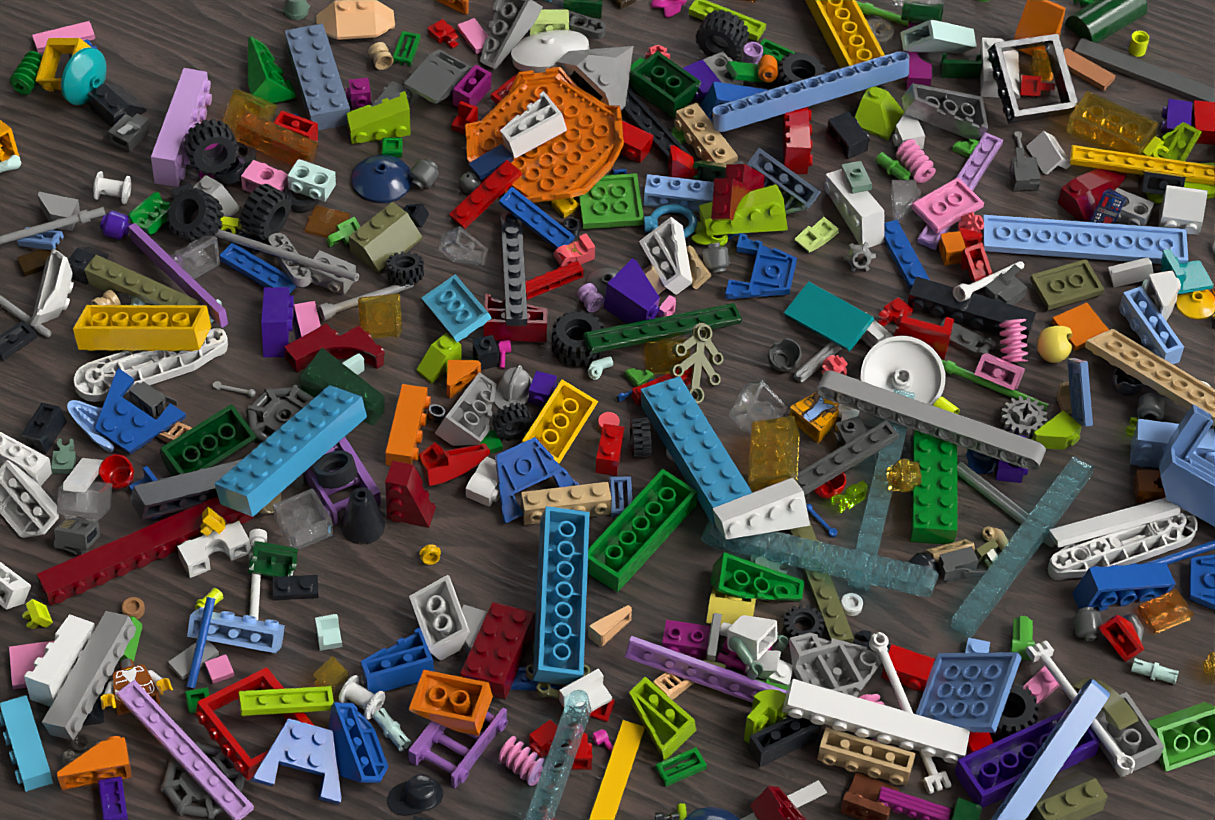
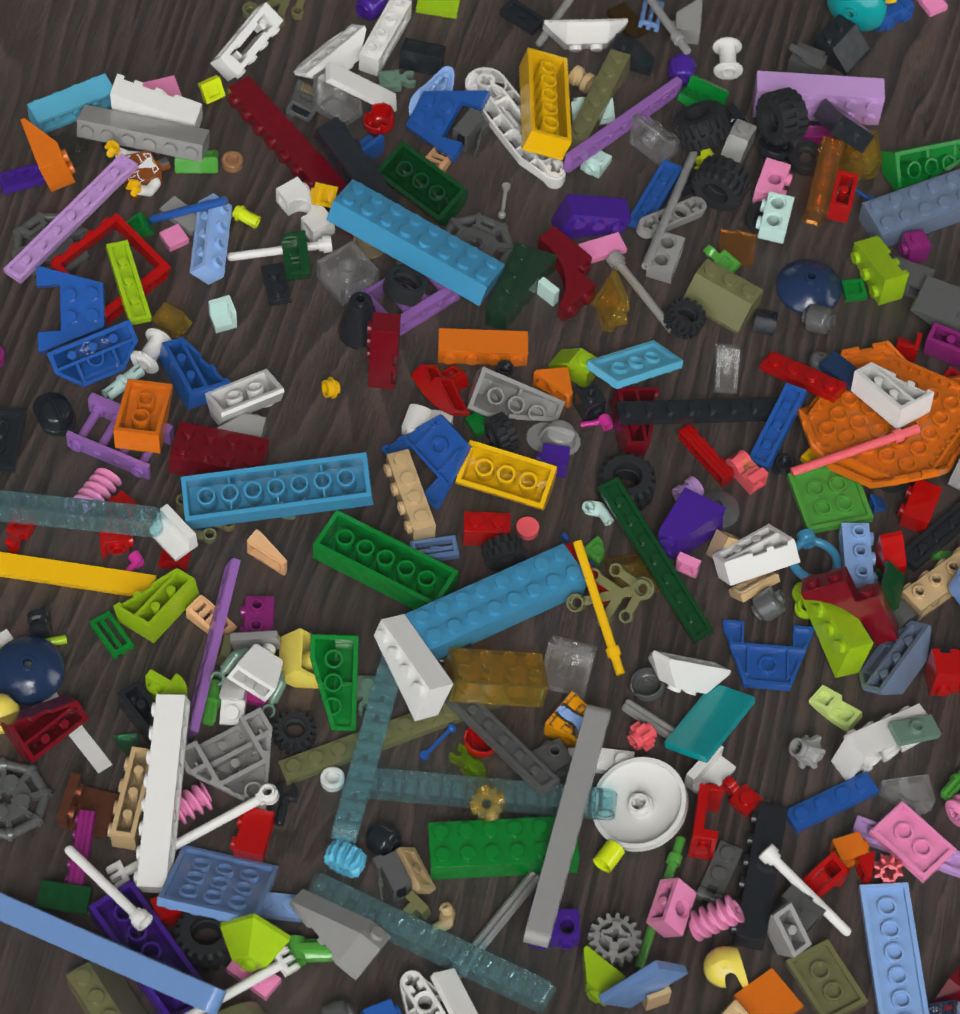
camera: 80 degrees right, 5 degrees up
(230, 106) = (843, 126): none -> black brick
(573, 133) = (896, 436): none -> coral bar
(745, 376) = (613, 651): none -> yellow bar
(779, 323) = (687, 673): none -> white wedge
(801, 762) = (126, 741): none -> clear green tile
(941, 597) = (345, 858): none -> medium azure gear
(1000, 752) = (139, 917): none -> white piece
(1013, 603) = (348, 935): none -> light grey wedge
(1030, 295) = (787, 932): none -> light grey slope
(1031, 666) = (253, 941): none -> lime slope

